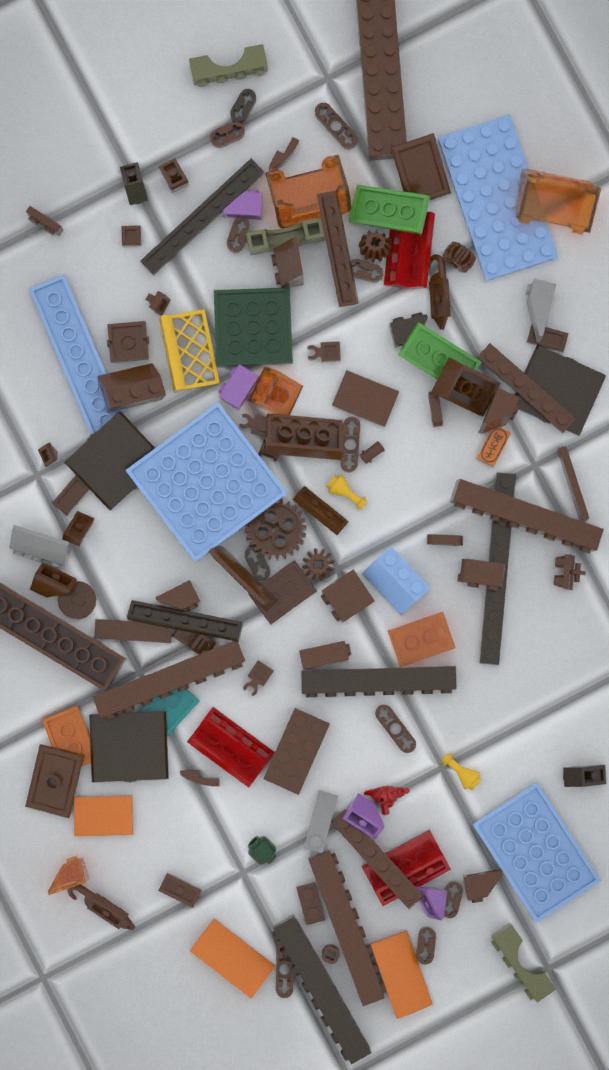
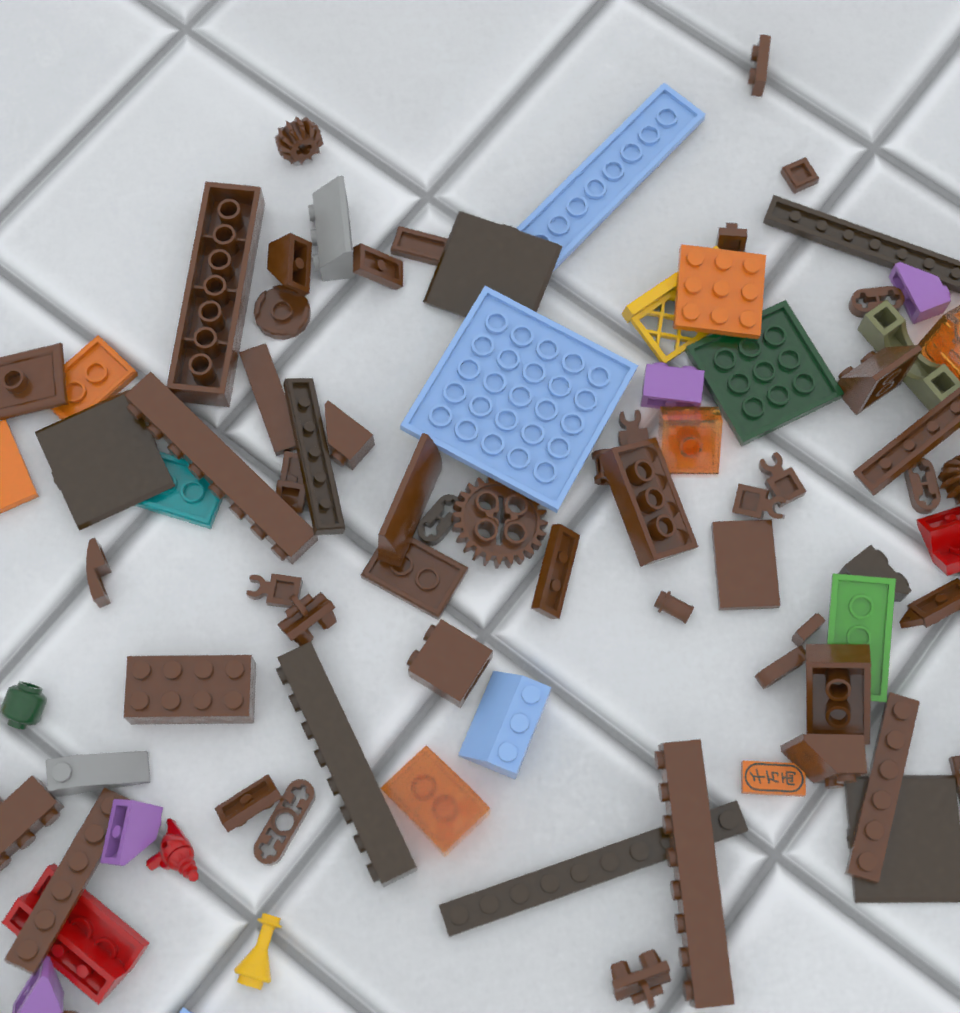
camera: 65 degrees right, 15 degrees down
(48, 454) = (462, 195): reddish brown slope -> none
(128, 341) = (659, 227): reddish brown plate -> none
(131, 387) = (598, 253): reddish brown slope -> none
(133, 183) = (867, 147): dark brown slope -> none
(173, 175) = (905, 190): reddish brown slope -> none
(192, 329) = (719, 291): none -> orange plate
(230, 747) = (159, 596): red slope -> none
(283, 667) = (305, 614): none -> reddish brown hips
(318, 557) = (489, 600): reddish brown gear -> none
(324, 654) = (347, 663): reddish brown brick -> none
(332, 375) = (754, 502): none -> reddish brown plate
(339, 487) = (602, 582): yellow piece -> none
(354, 459) = (693, 572): reddish brown beam -> none
(376, 744) = (248, 803): none -> reddish brown plate
(420, 382) = (808, 629): none -> reddish brown tile
(448, 540) = (599, 767): reddish brown beam -> none
(482, 573) = (576, 845): reddish brown hinge -> none
(573, 483) = (778, 924): reddish brown tile -> none

